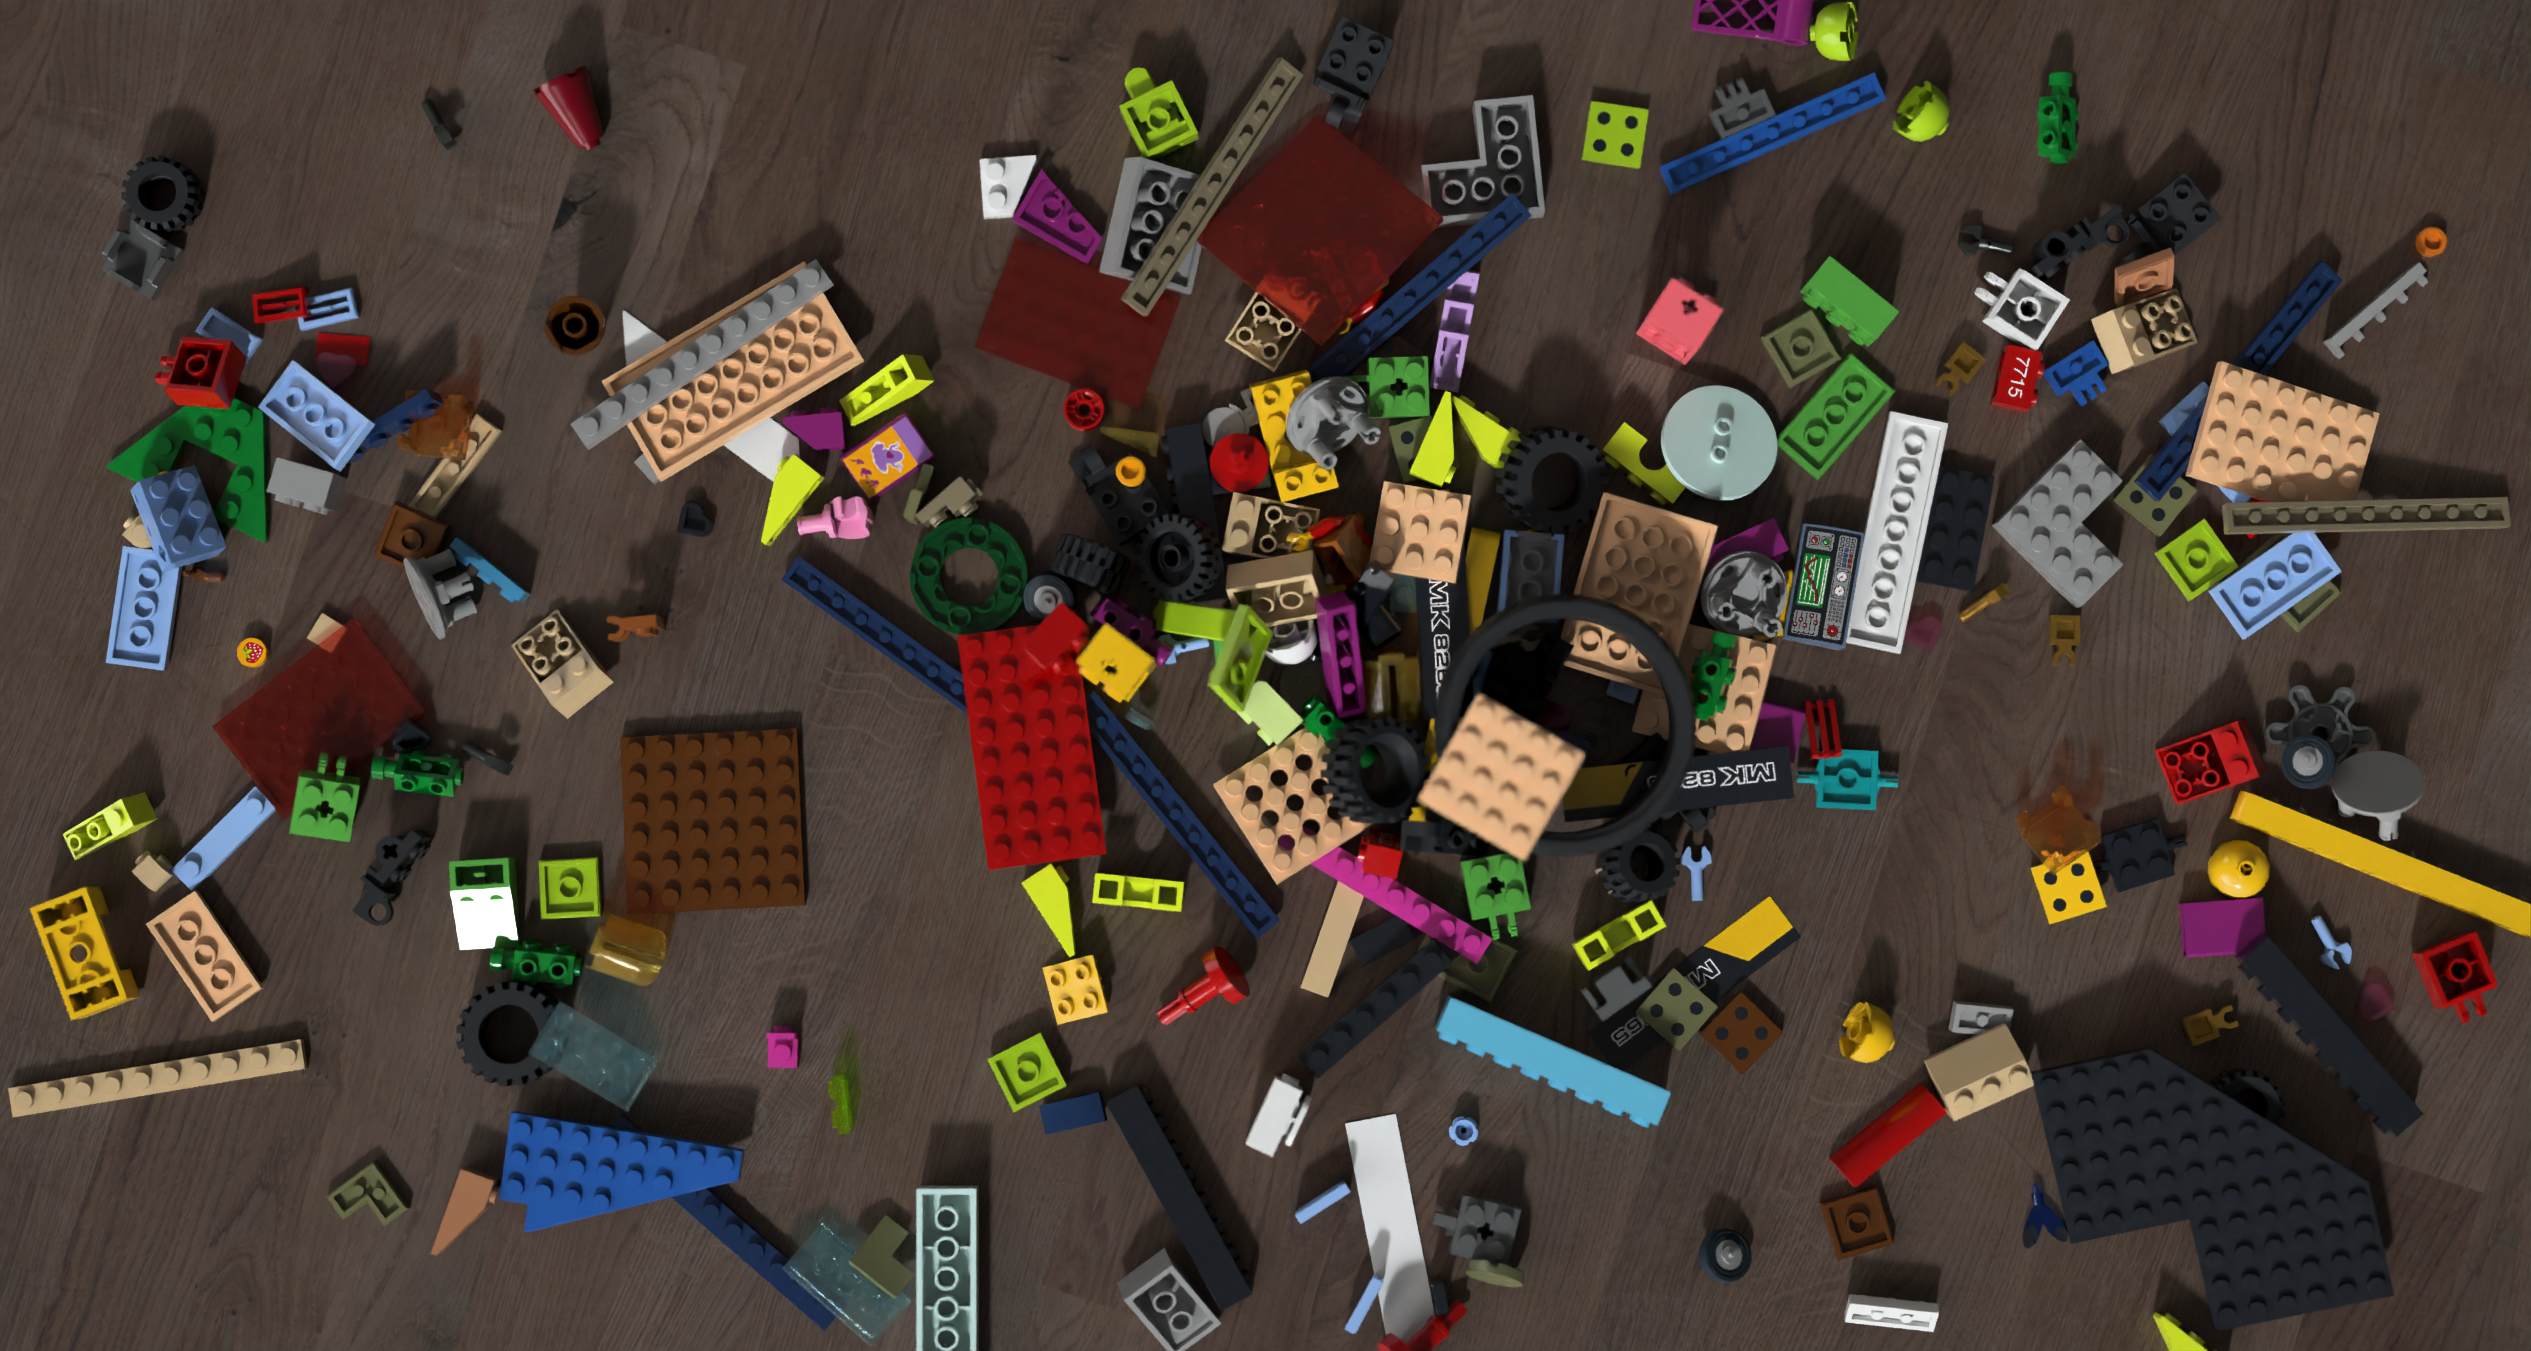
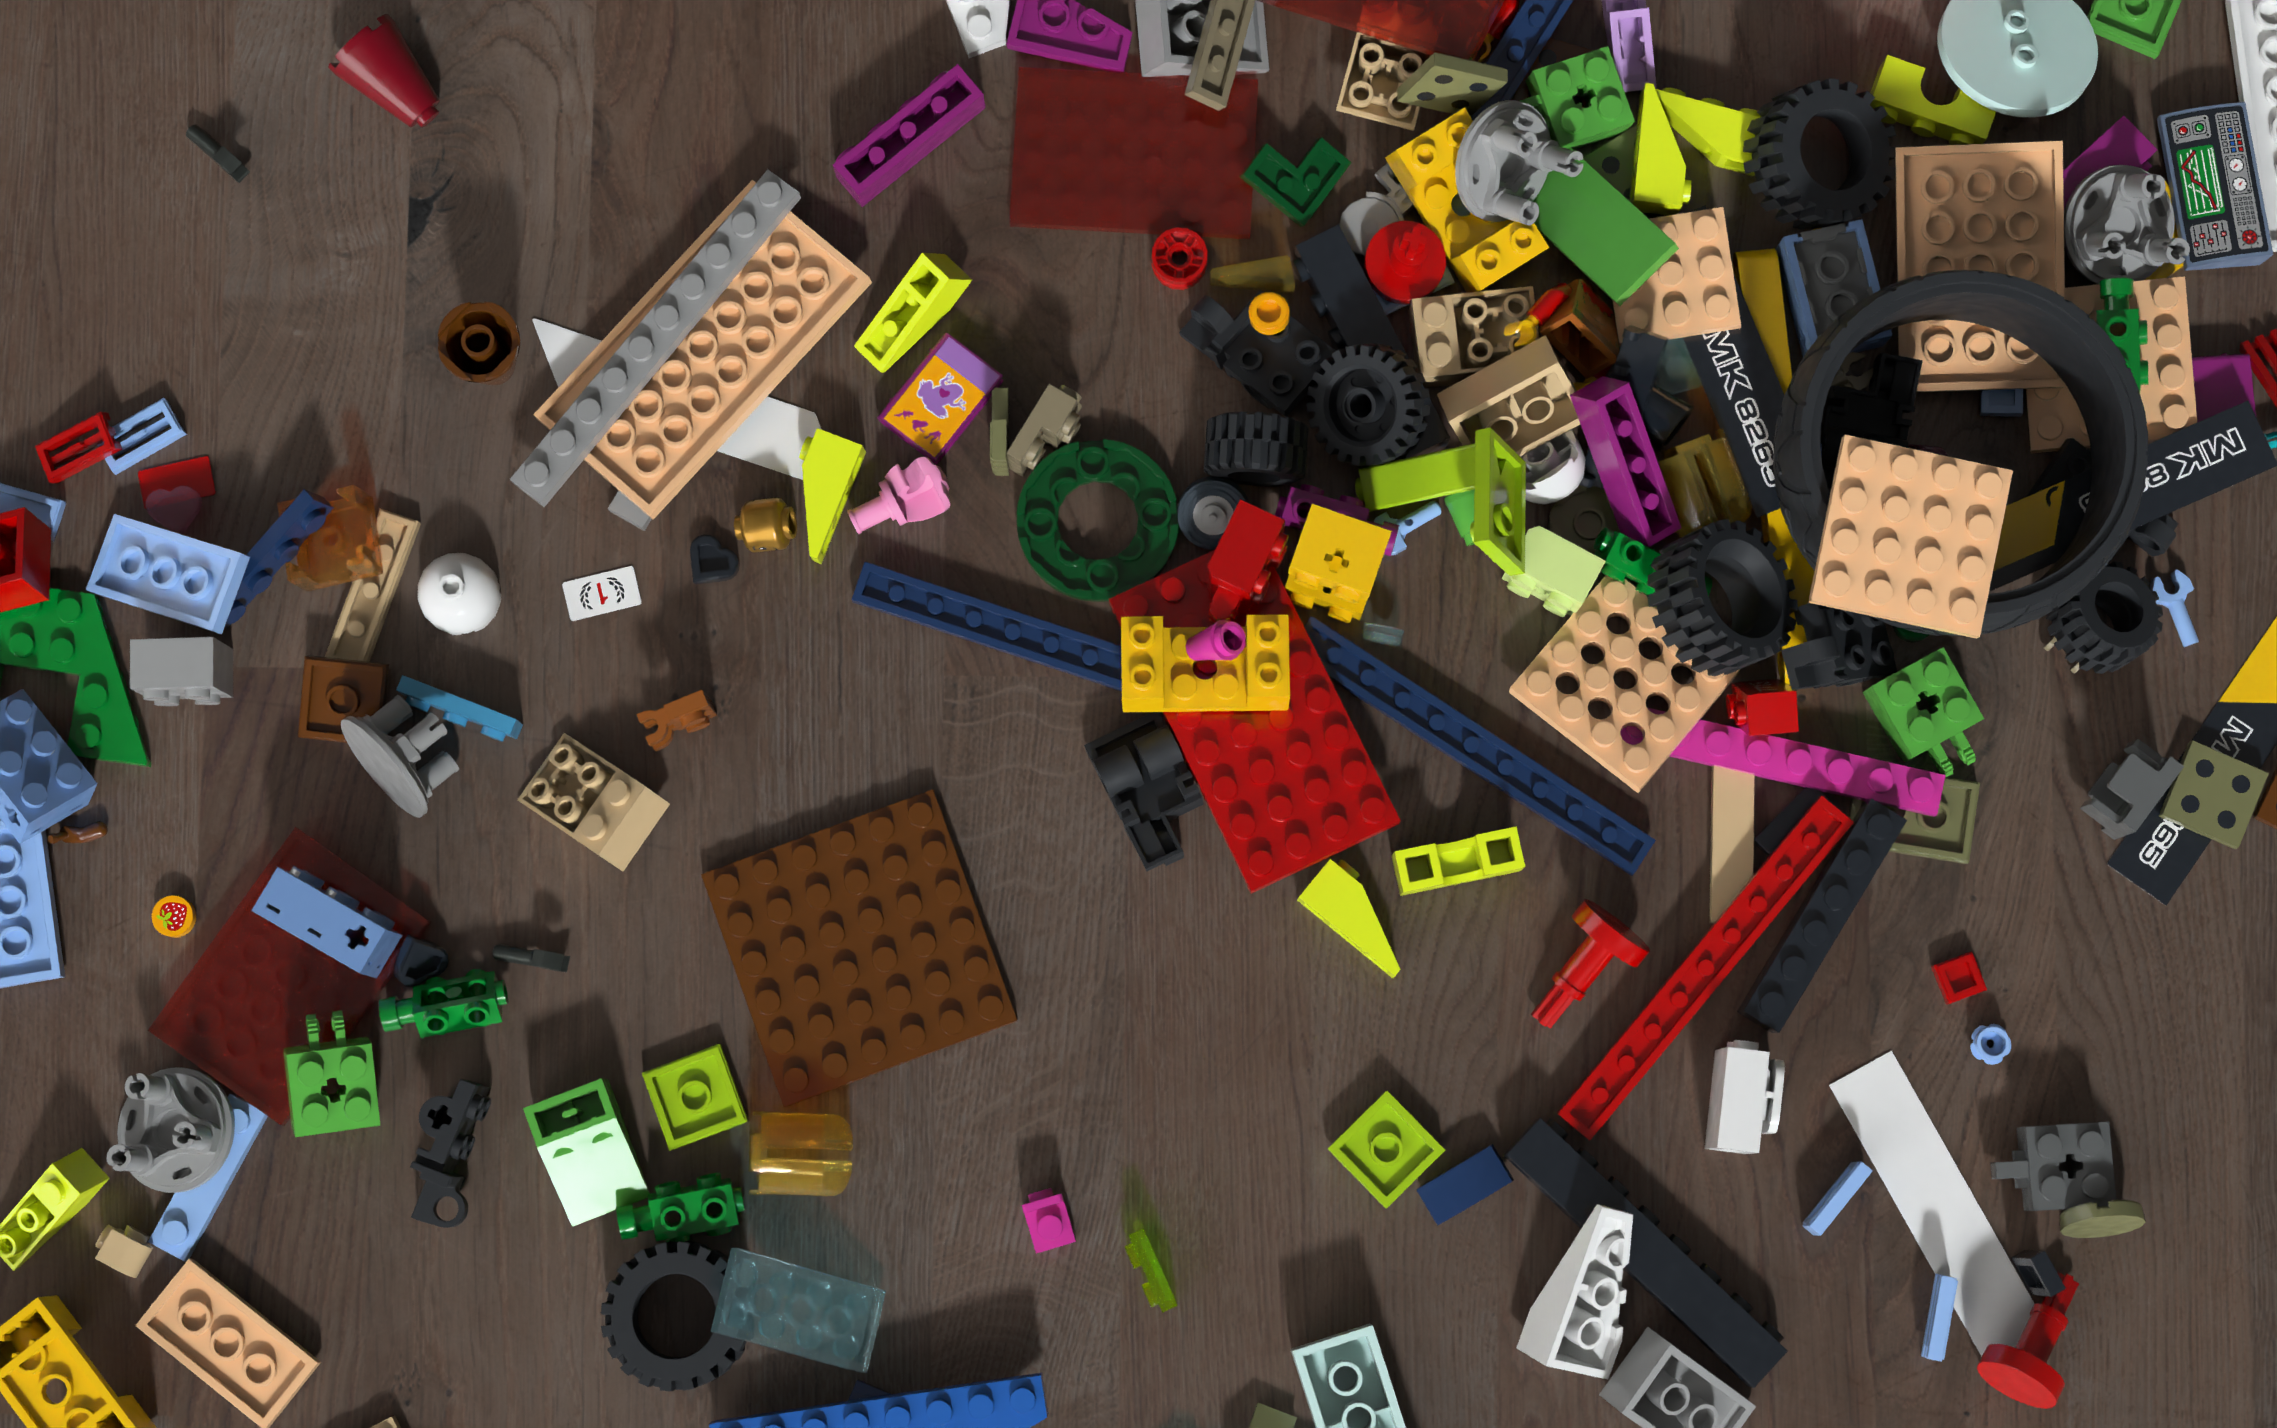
camera: 20 degrees left, 5 degrees down
(209, 799) = (173, 1129): none -> light grey piece
(323, 629) = (258, 855): tan tile -> none
(354, 693) = (328, 920): none -> medium blue piece
(513, 489) = (459, 593): none -> white cylinder
(612, 519) = (601, 593): none -> white sticker
(738, 508) = (766, 525): none -> pearl gold head
(821, 431) = (841, 391): magenta slope -> none
(921, 265) = (909, 135): none -> magenta brick
(943, 770) = (1146, 785): none -> black plate
(973, 699) = (1162, 679): none -> yellow plate
(1016, 694) = (1217, 642): none -> dark pink cone
(1075, 989) = (1415, 1018): yellow hinge -> none
(1120, 1222) = (1578, 1310): none -> white wedge
(1183, 387) = (1300, 188): none -> dark green plate
(1284, 1018) = (1705, 967): none -> red plate
(1306, 352) = (1452, 84): none -> olive tile
(1379, 485) = (1601, 231): none -> bright green tile
(1458, 1079) = (1959, 977): none -> red tile
(1552, 1060) = (2080, 910): medium azure brick -> none
(1618, 934) = (2106, 718): neon yellow arch -> none

